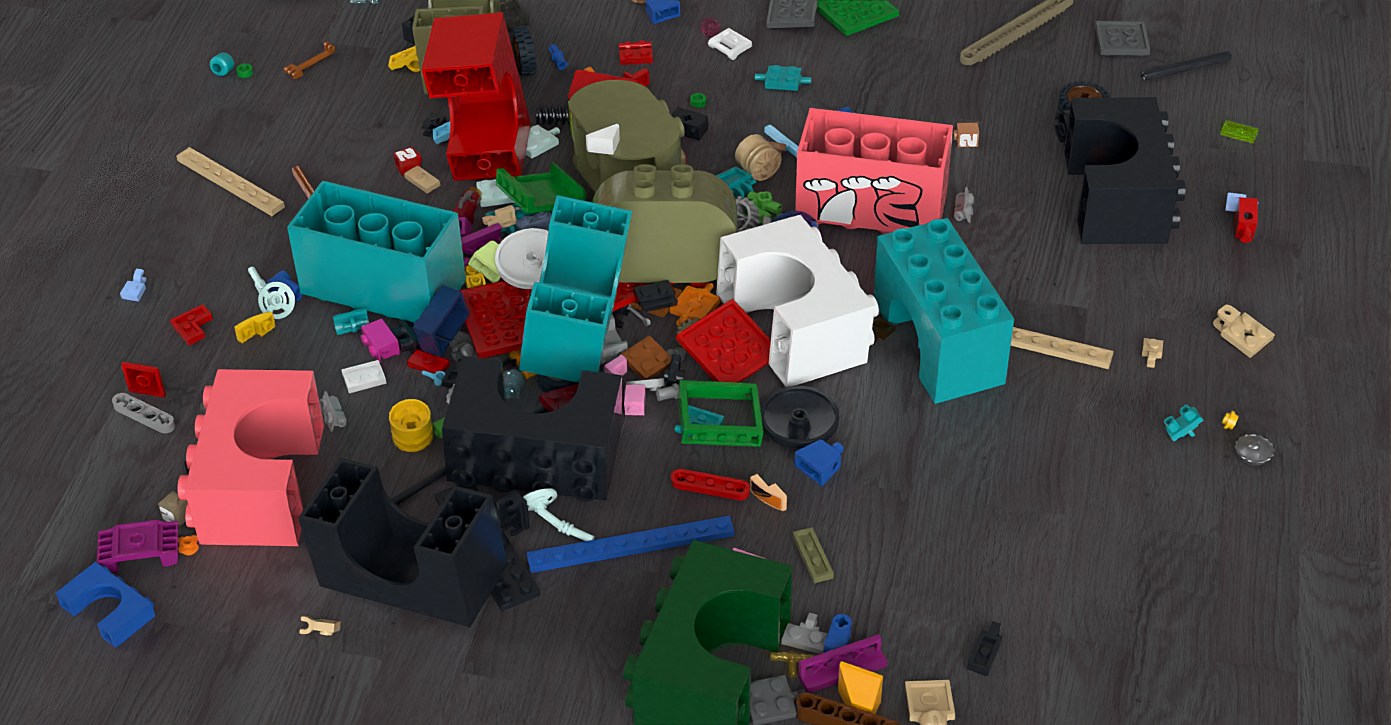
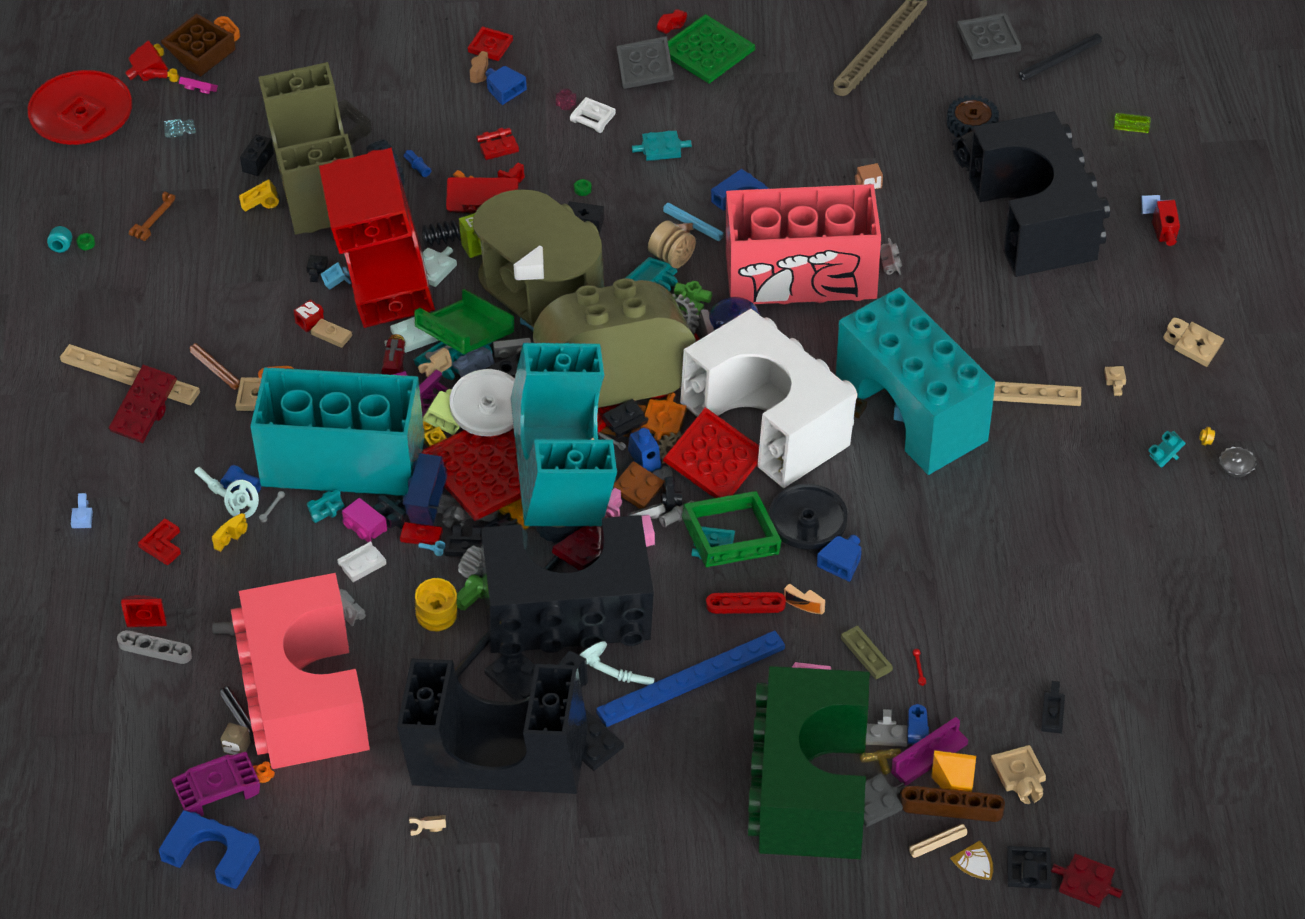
camera: 15 degrees left, 5 degrees up
(228, 206) = (143, 404): none -> dark red plate
(293, 321) = (263, 517): none -> light grey hinge
(663, 319) = (643, 444): none -> blue torso
(861, 594) = (921, 681): none -> red hinge

